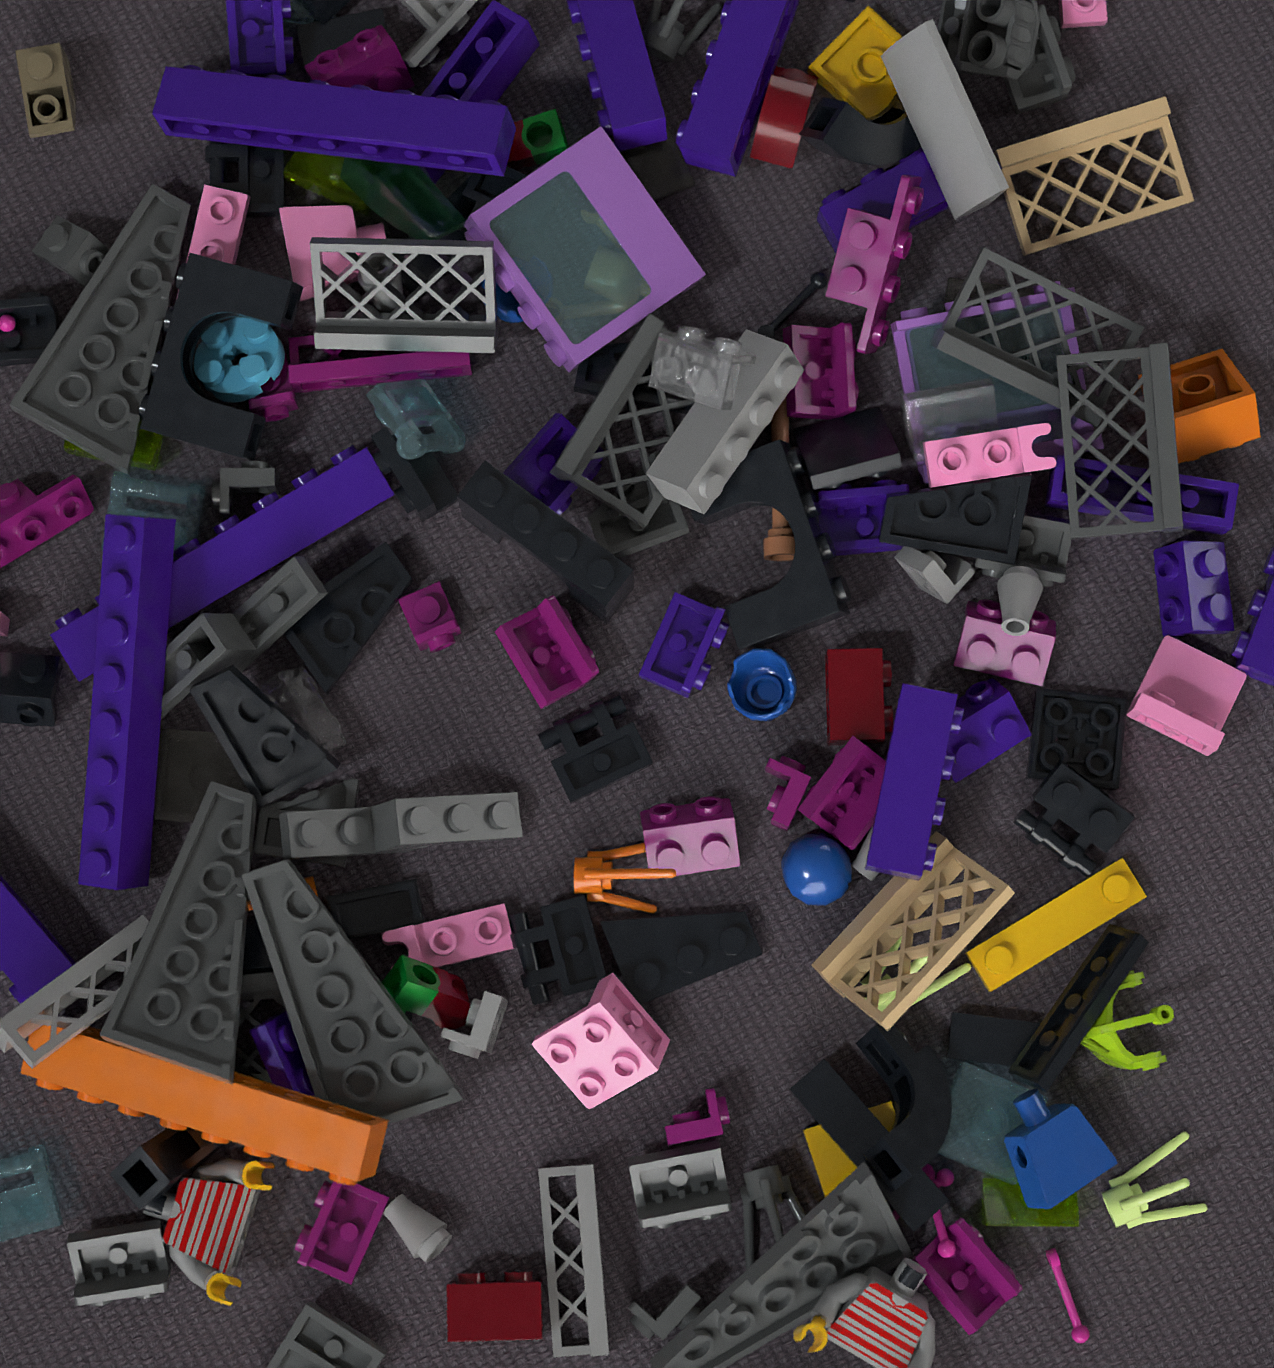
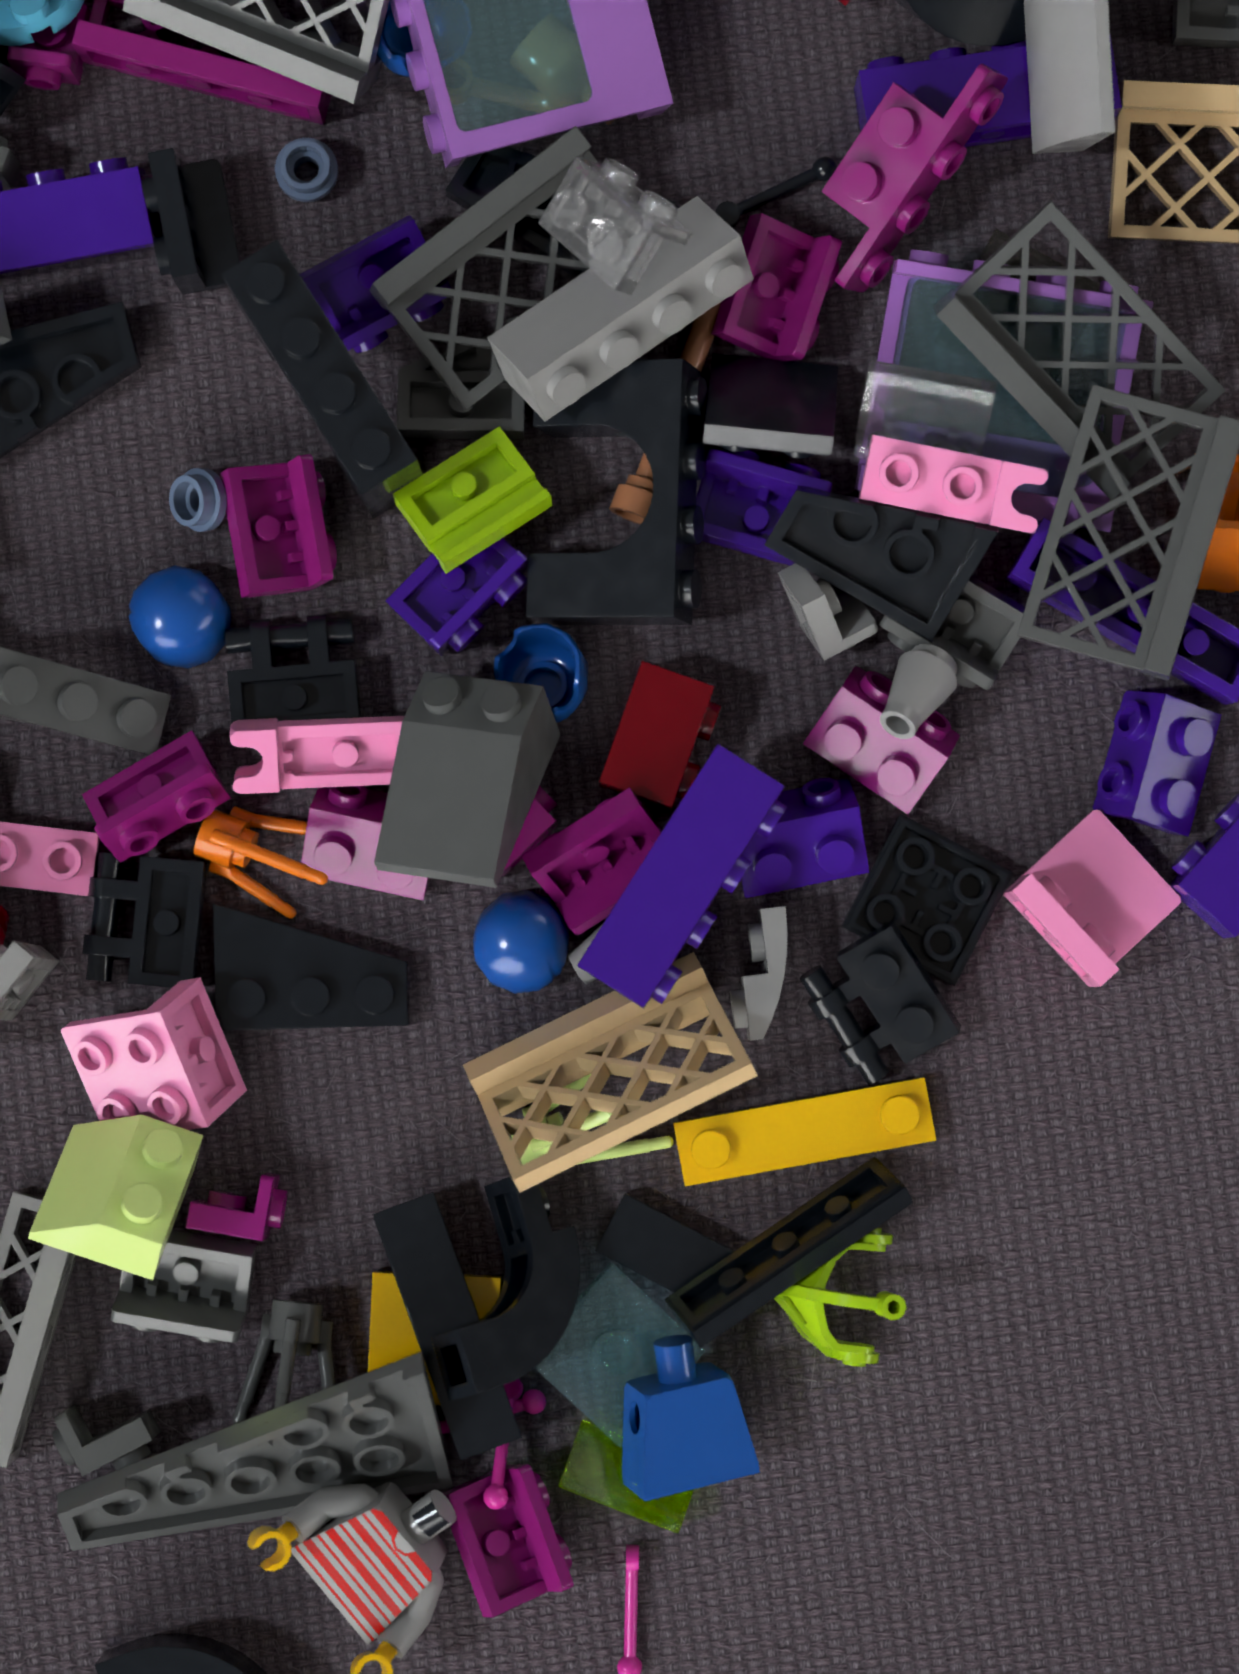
camera: 15 degrees right, 5 degrees up
(413, 405) = (222, 134): clear light blue plate -> none
(430, 618) = (145, 425): magenta bracket -> none
(470, 395) = (303, 151): none -> sand blue plate
(487, 654) = (198, 499): none -> sand blue plate
(503, 737) = (179, 616): none -> blue hair
(535, 863) = (155, 797): none -> magenta bracket
(614, 1136) = (118, 1191): none -> yellowish green slope
(637, 791) = (316, 752): none -> bright pink plate
(673, 584) = (472, 499): none -> lime plate
(741, 770) = (464, 777): none -> dark grey slope
(991, 843) = (759, 994): none -> light grey slope
(1128, 1202) = (756, 1526): yellowish green plant -> none

